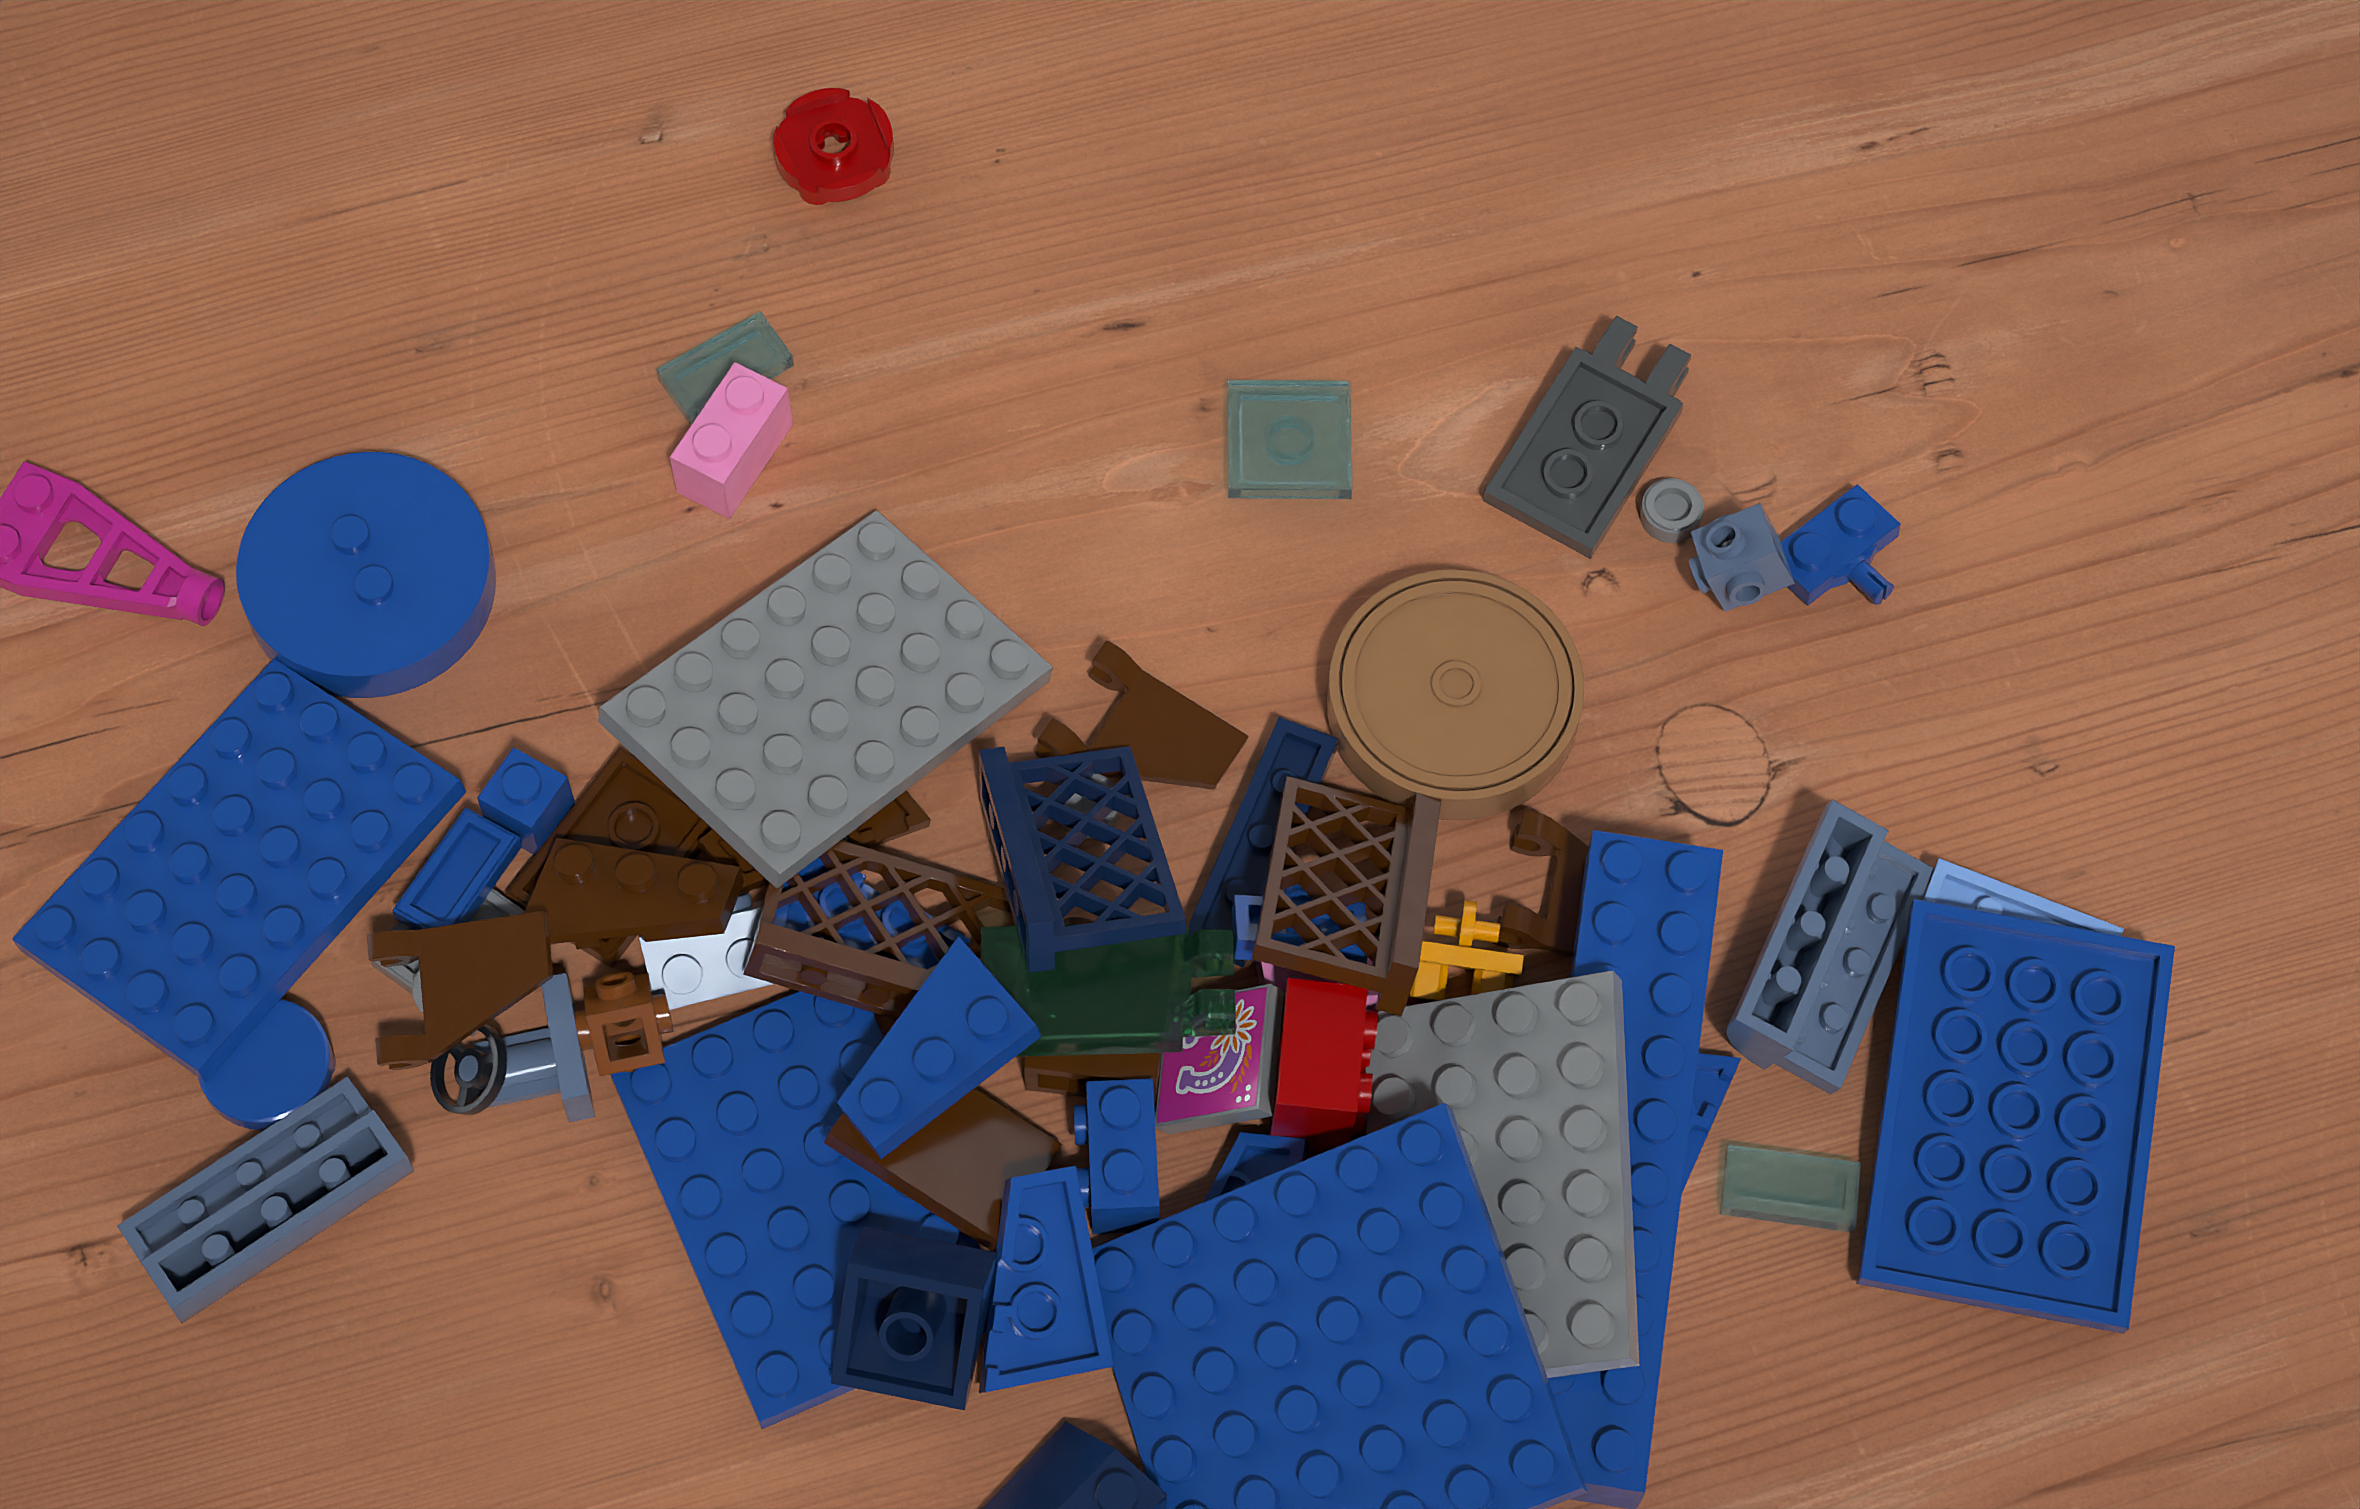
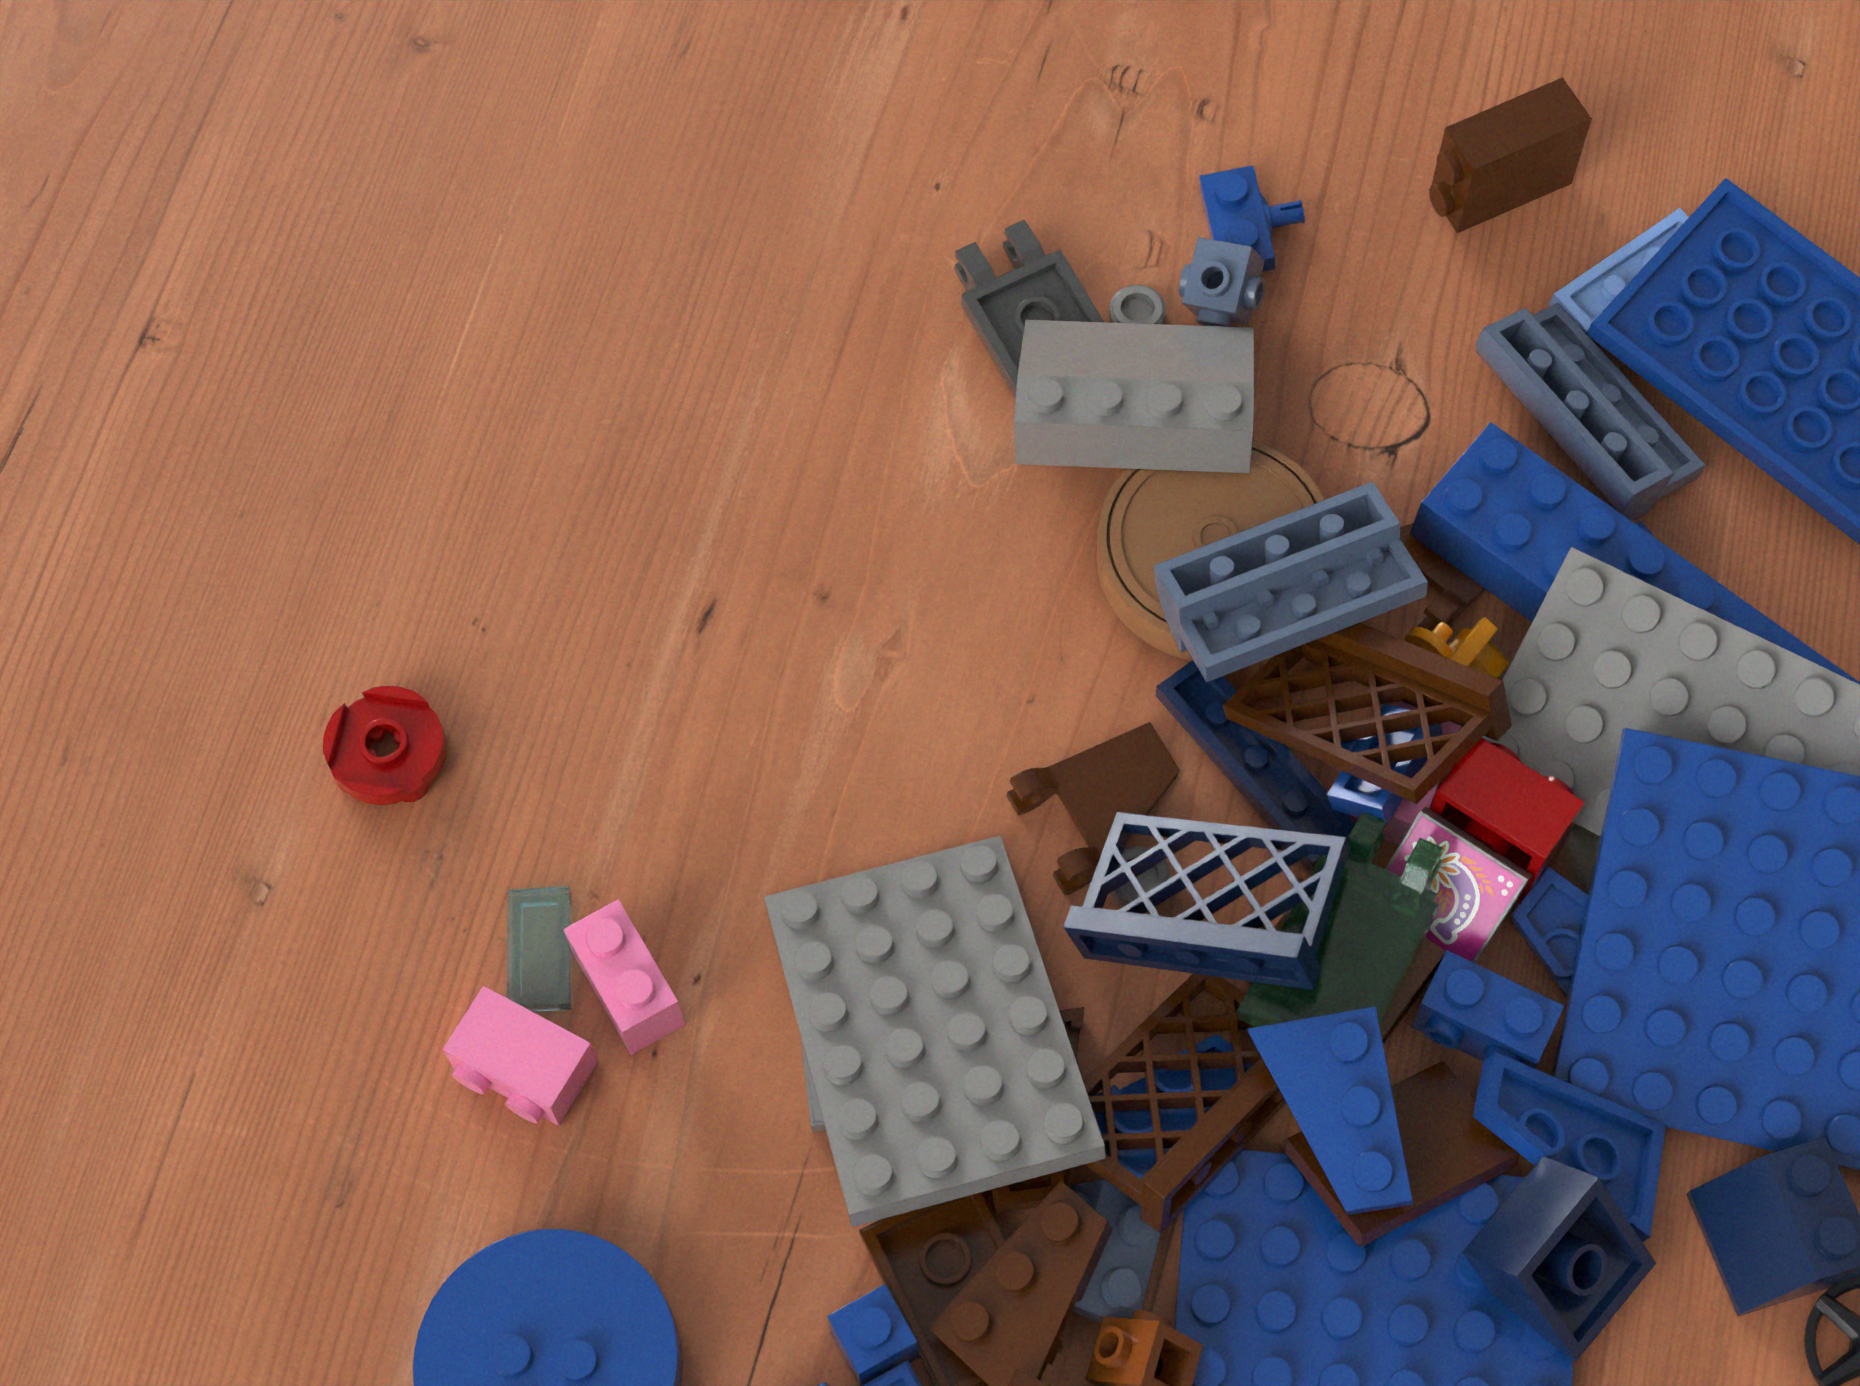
camera: 55 degrees left, 0 degrees up
(614, 403) = (519, 1057): none -> bright pink piece
(1289, 439) = (899, 547): clear light blue tile -> none
(1432, 756) = (1288, 582): none -> sand blue brick
(1555, 535) = (1135, 396): none -> light grey slope
(1790, 1188) = (1762, 547): clear light blue tile -> none
(2058, 735) = (1509, 155): none -> reddish brown brick

